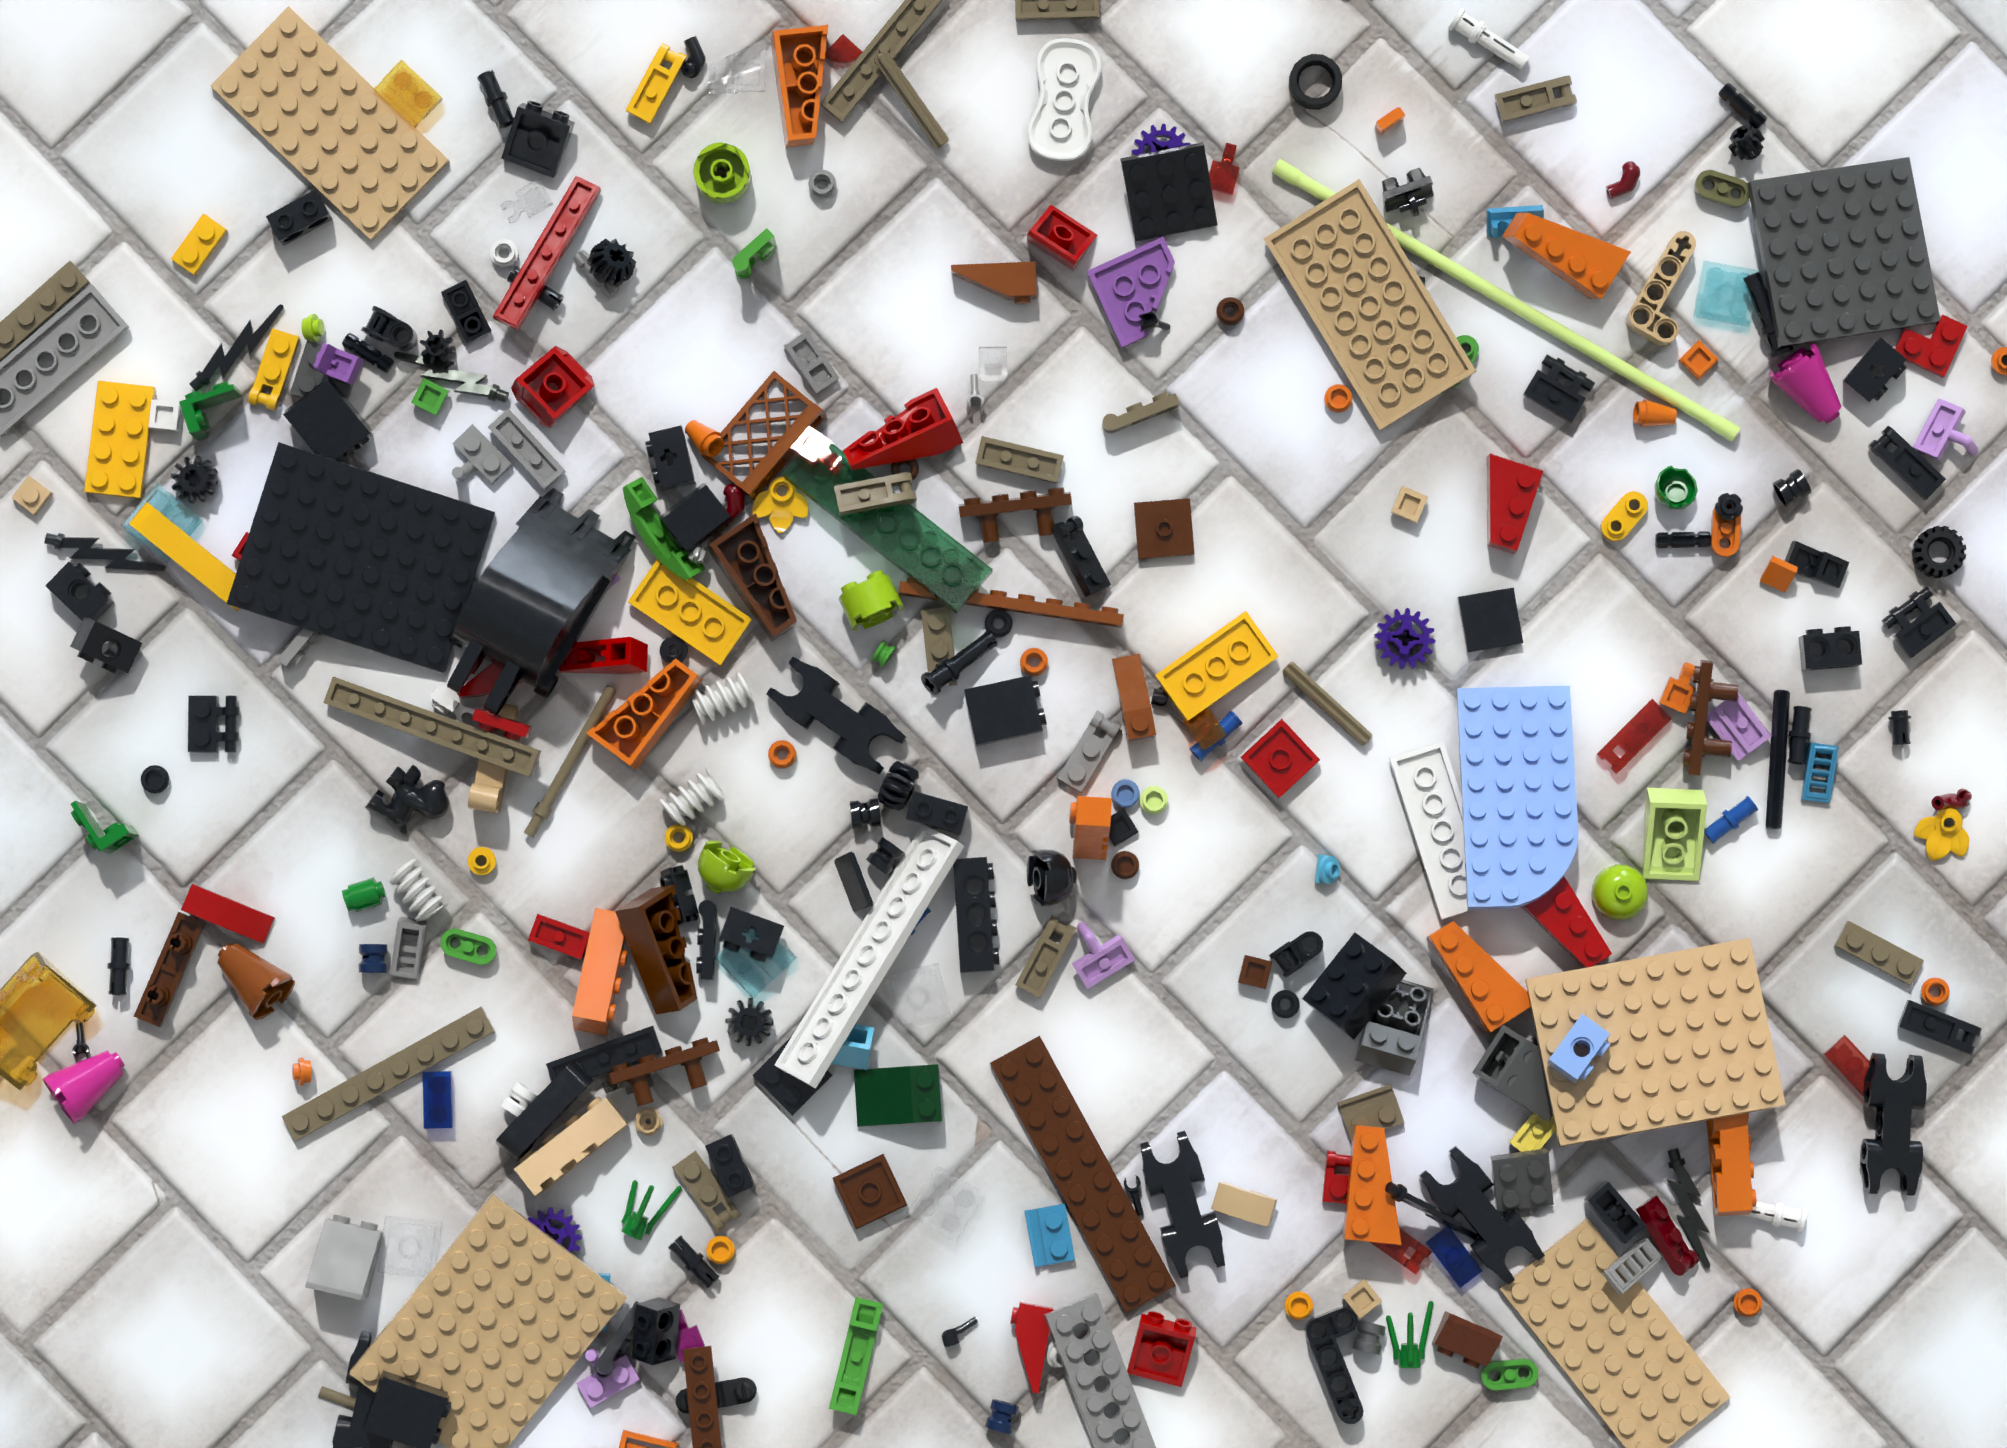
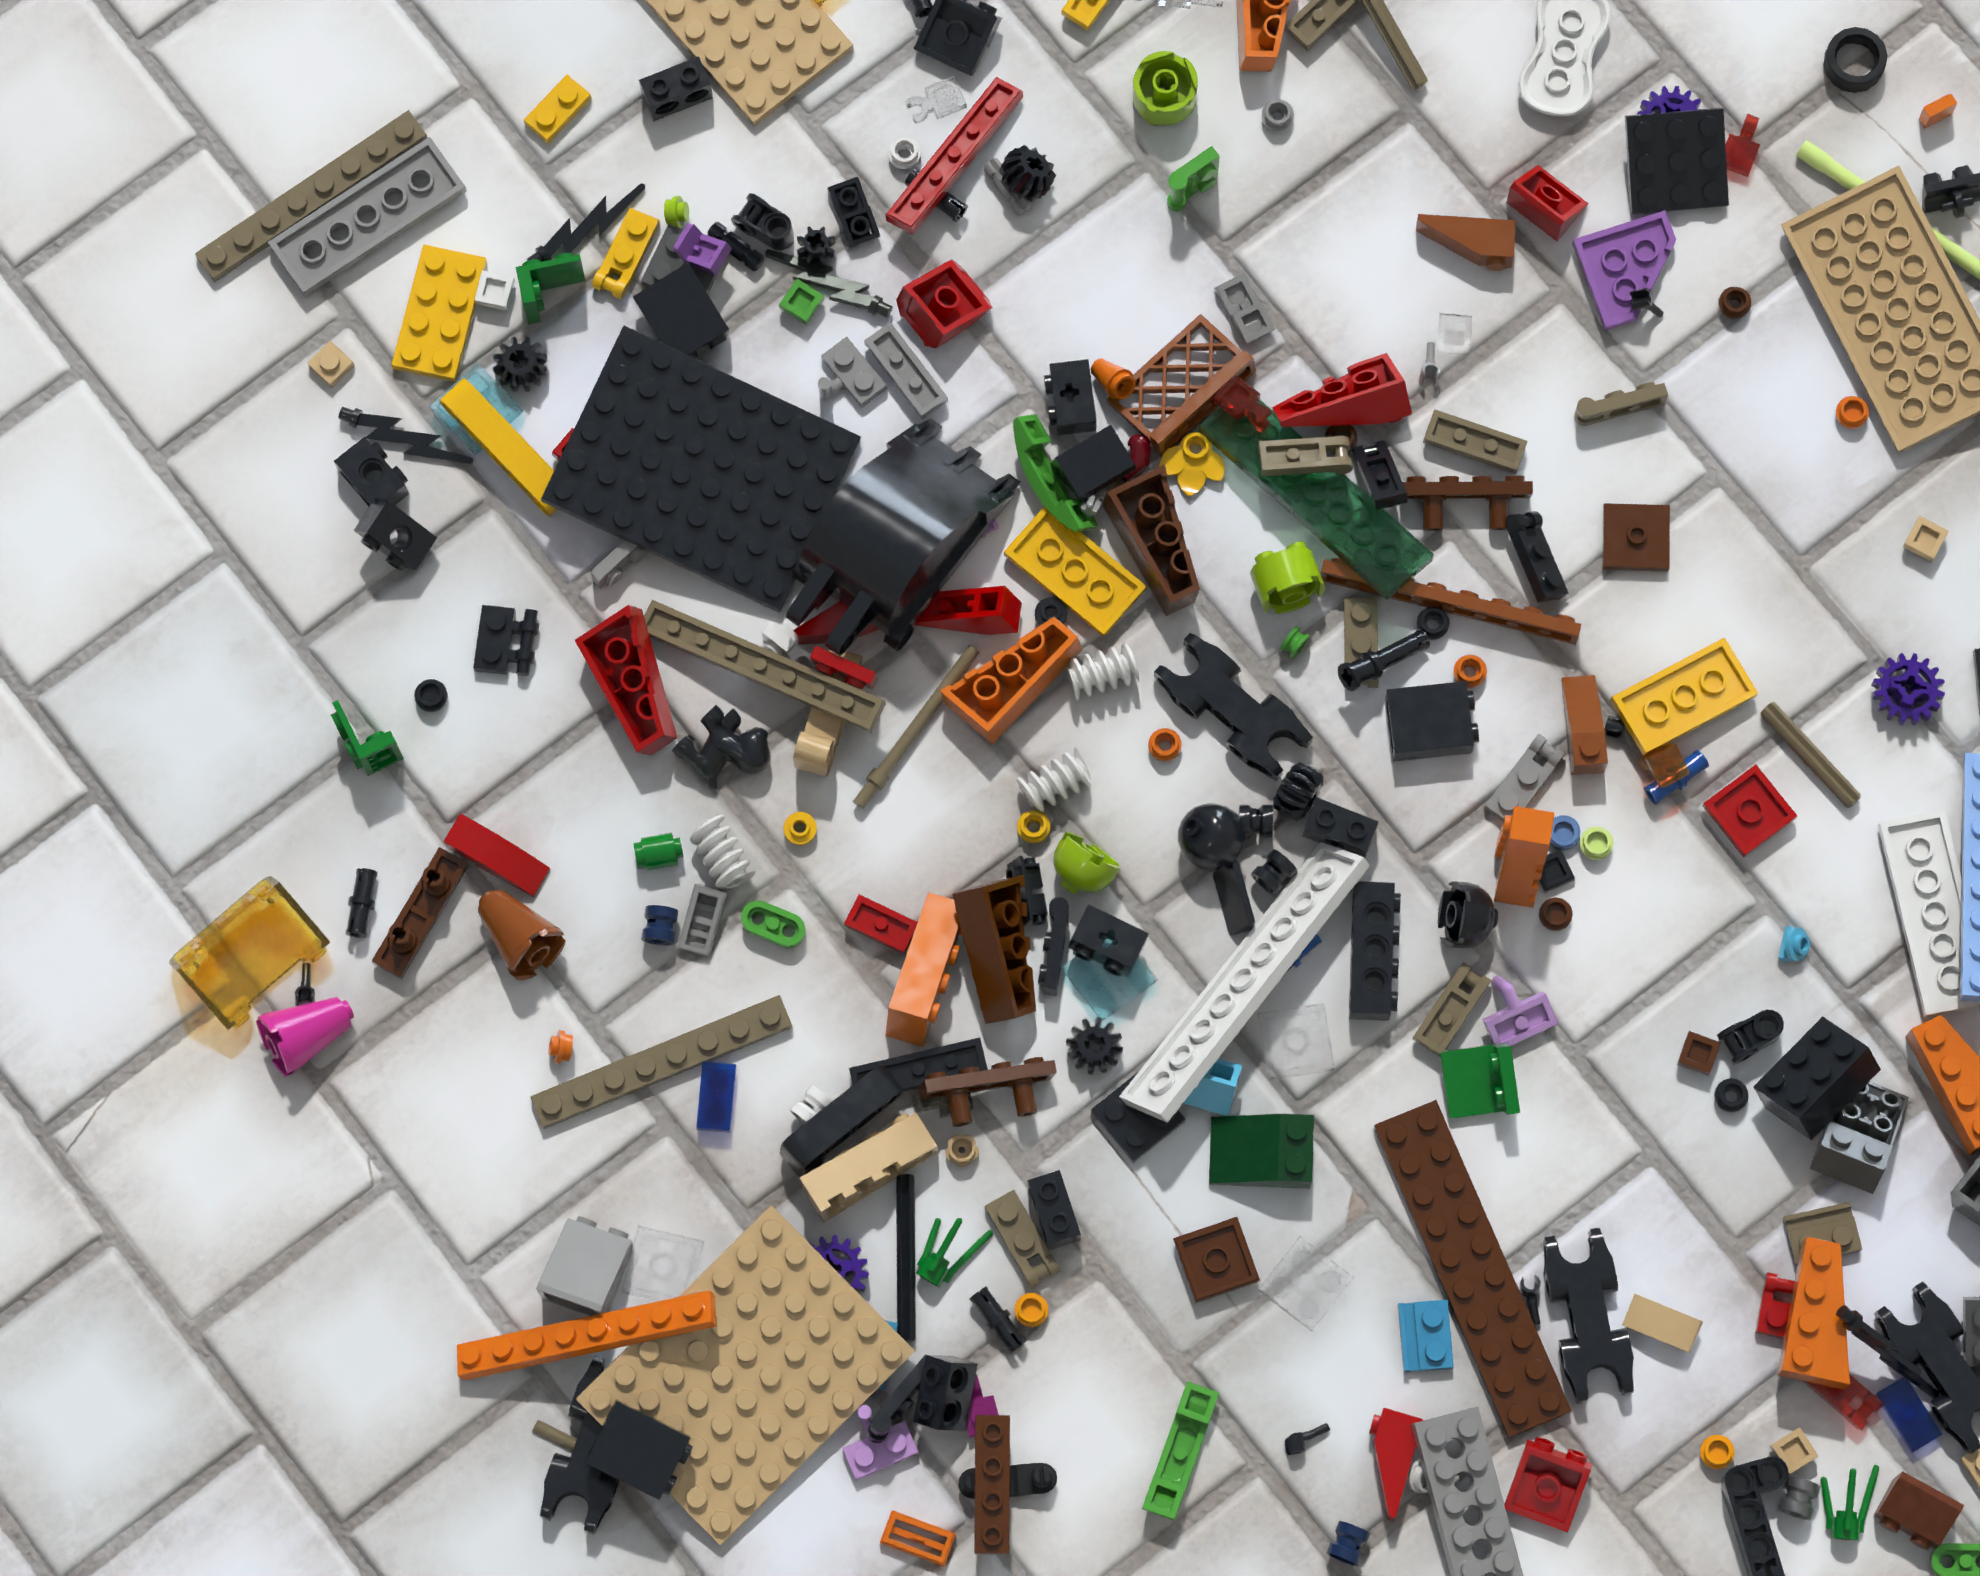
camera: 10 degrees right, 10 degrees down
(322, 750) = (629, 676): none -> red wedge
(352, 1318) = (586, 1335): none -> orange plate
(611, 1217) = (905, 1256): none -> black axle
(828, 833) = (1211, 836): none -> black cylinder
(940, 501) = (1380, 475): none -> black plate
(1074, 1016) = (1480, 1080): none -> green bracket

